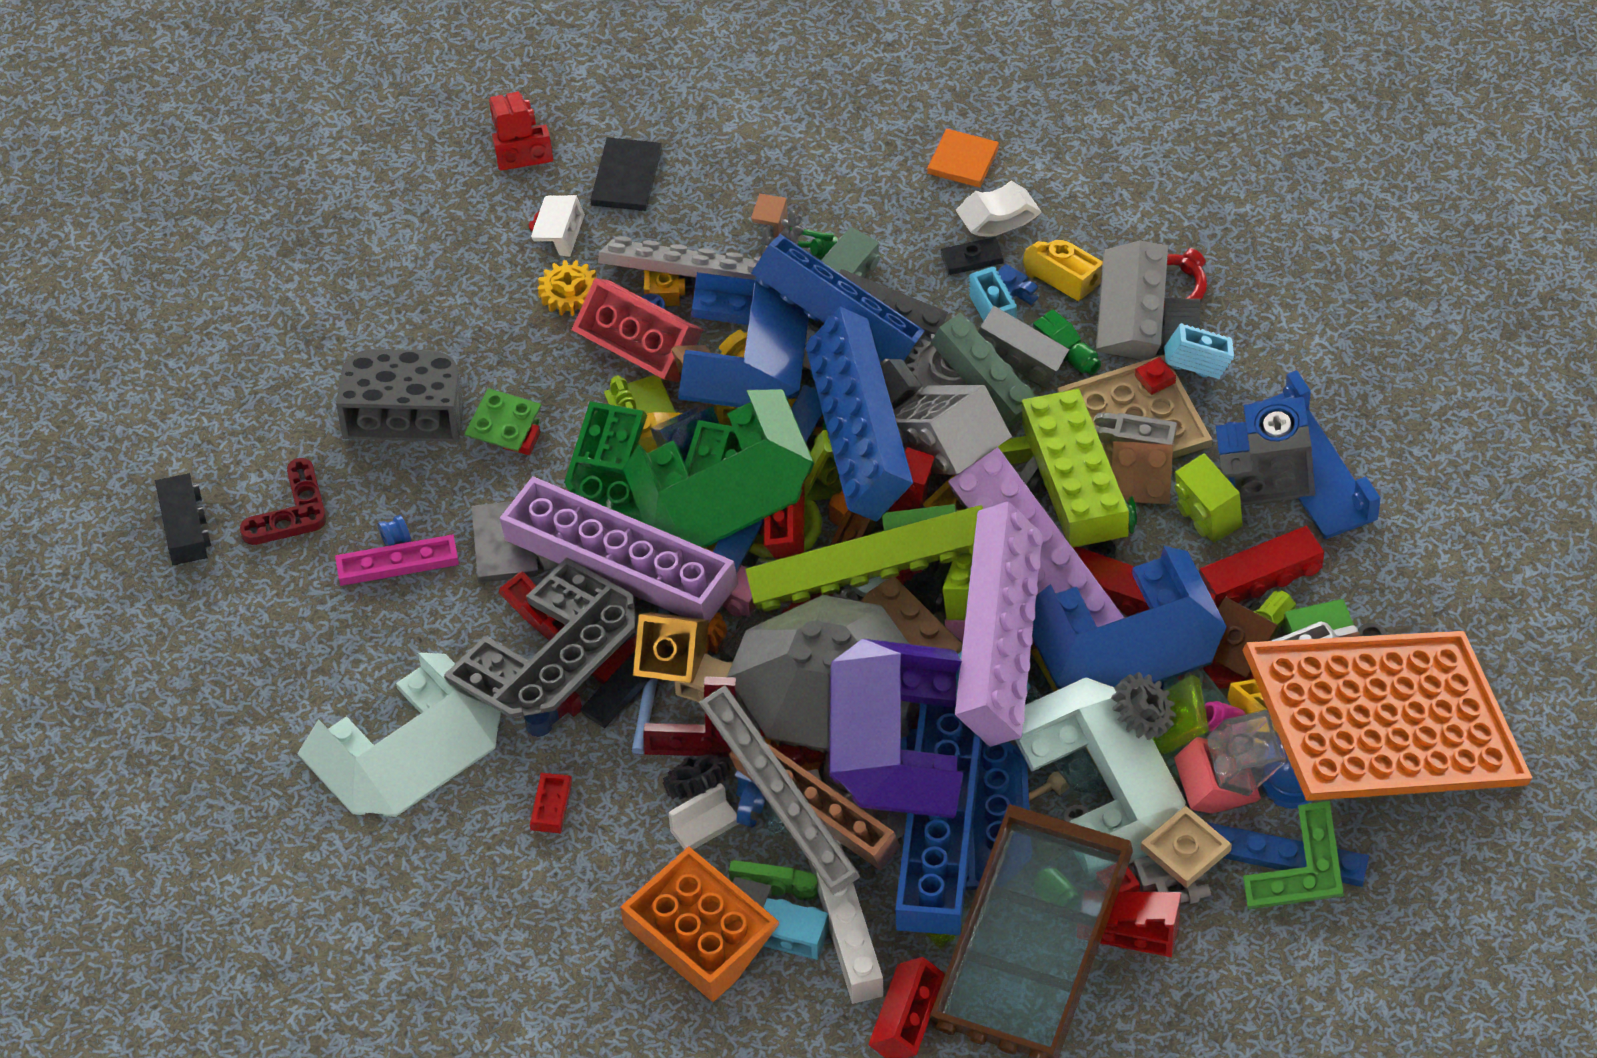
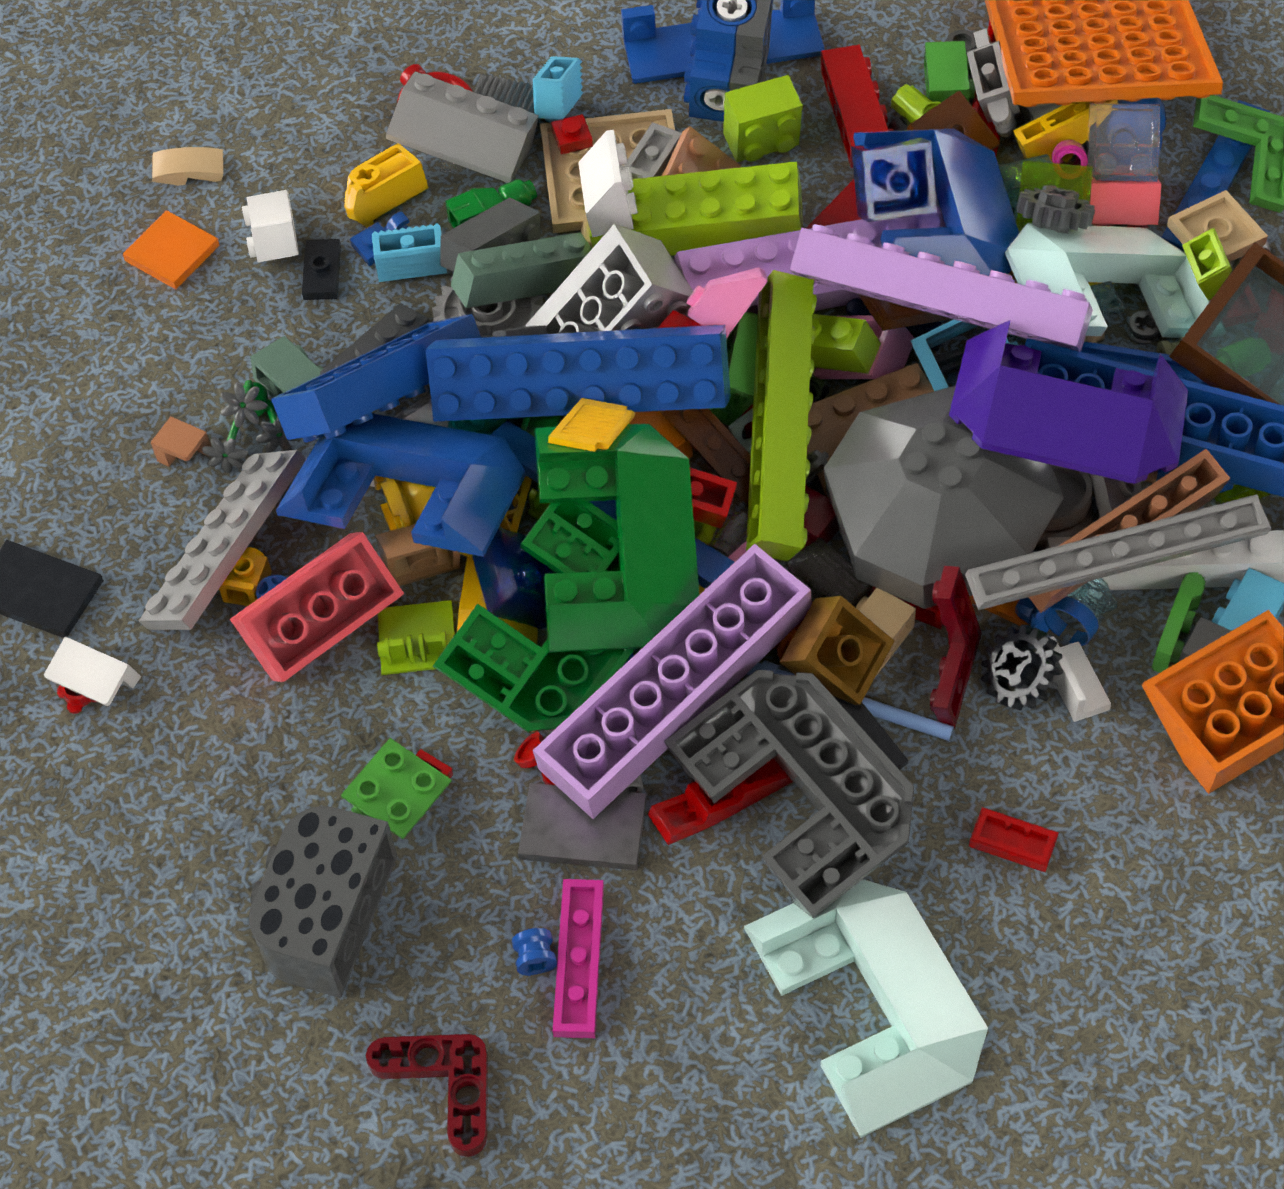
camera: 75 degrees left, 5 degrees up
(565, 286) = (206, 690): yellow gear -> none
(794, 422) = (591, 425): none -> yellow window
(945, 483) = (726, 298): none -> bright pink slope
(1050, 141) = (179, 164): none -> tan slope
(1051, 390) = (607, 186): none -> white slope
(1124, 577) = (894, 179): none -> clear blue brick
(1127, 825) = (1208, 262): none -> lime slope

